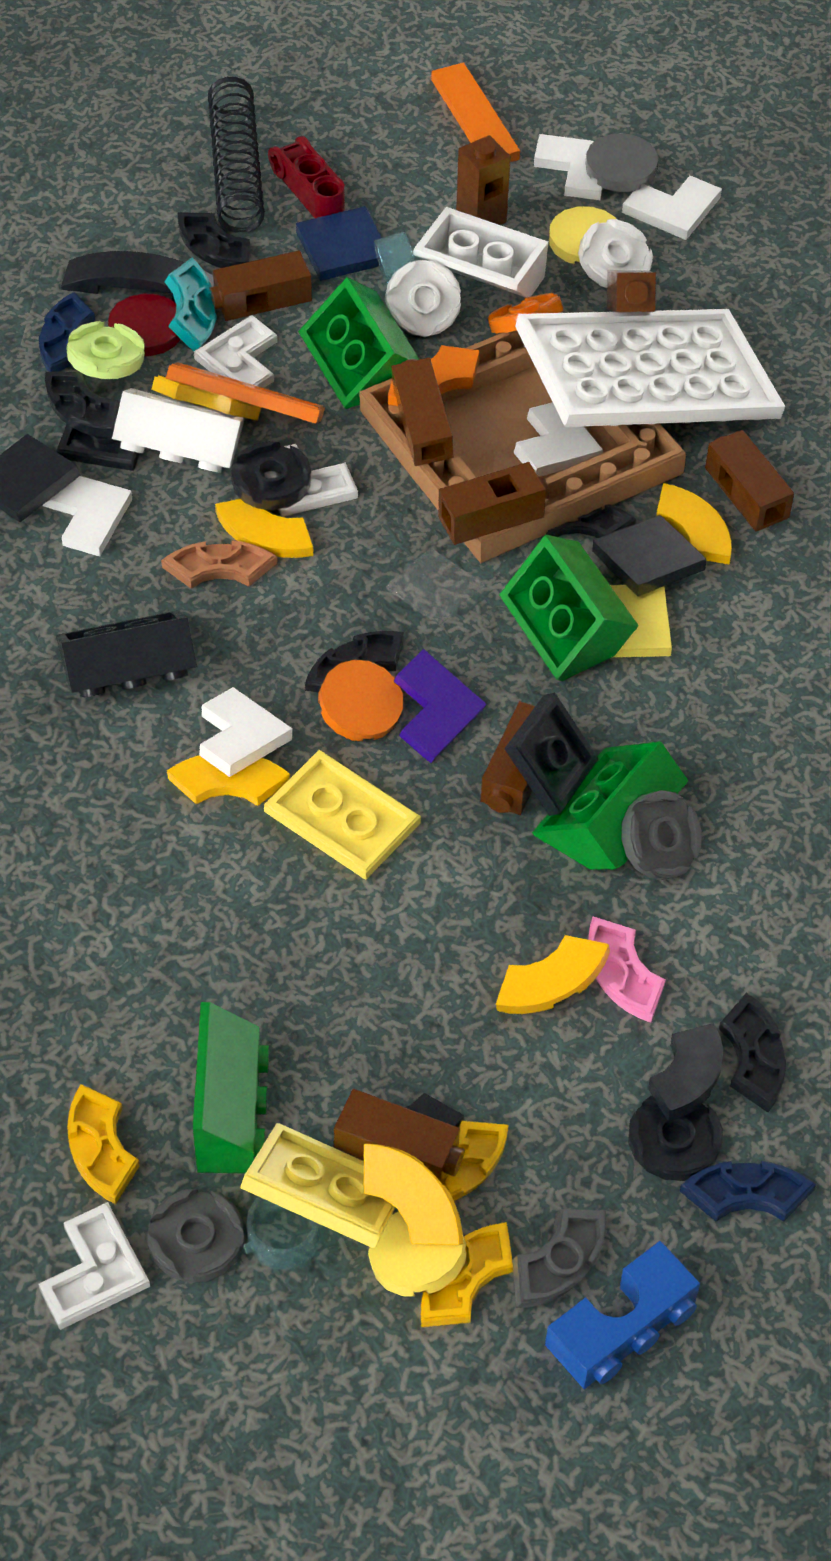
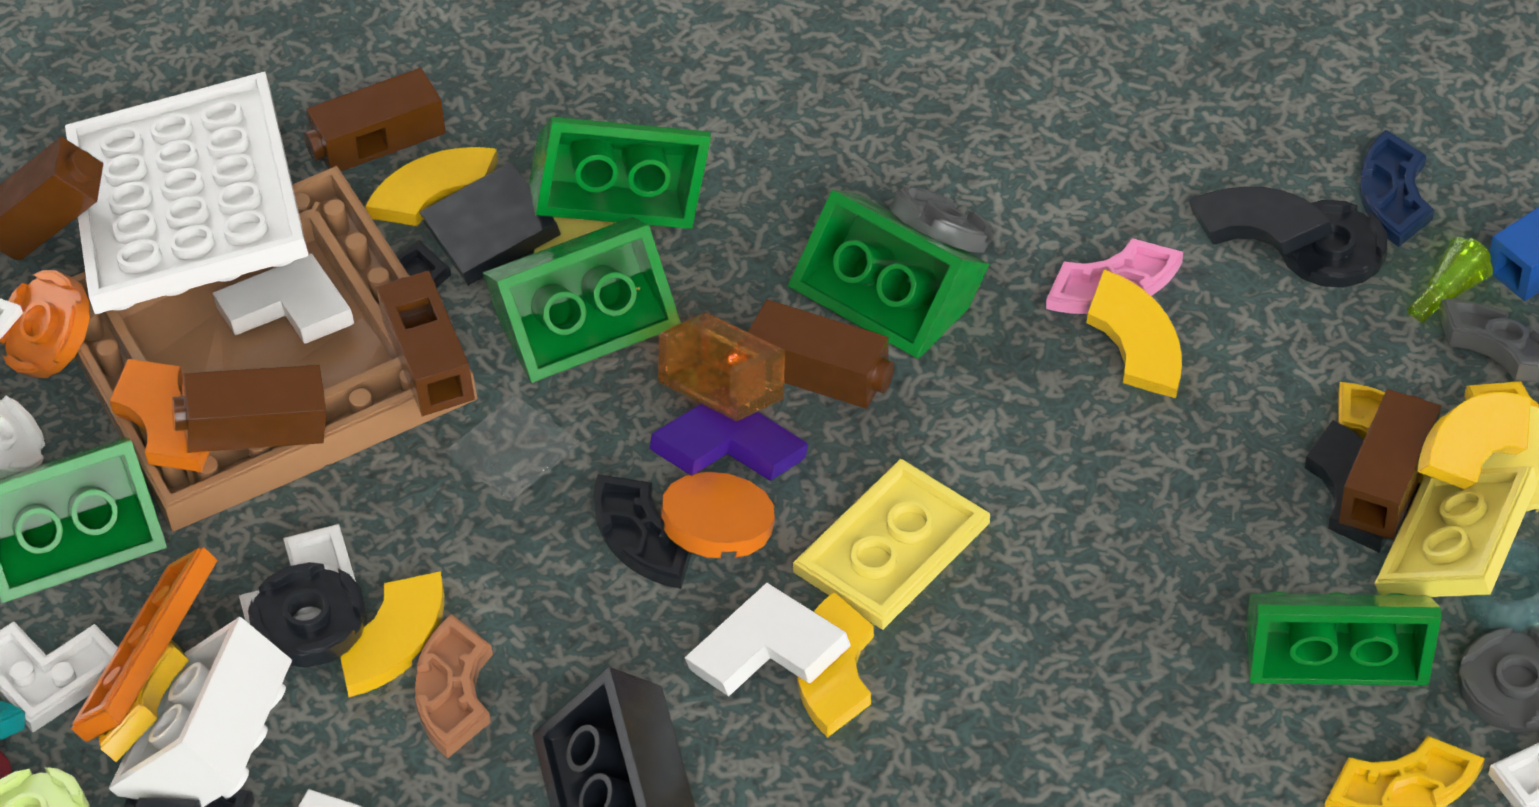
camera: 85 degrees left, 5 degrees down
(494, 692) = (721, 366): none -> clear orange panel
(551, 754) = (829, 306): black tile -> none
(637, 1224) = (1459, 269): none -> clear neon green cone
(678, 612) = (618, 172): none -> green slope
(759, 1052) = (1200, 172): black tile -> none

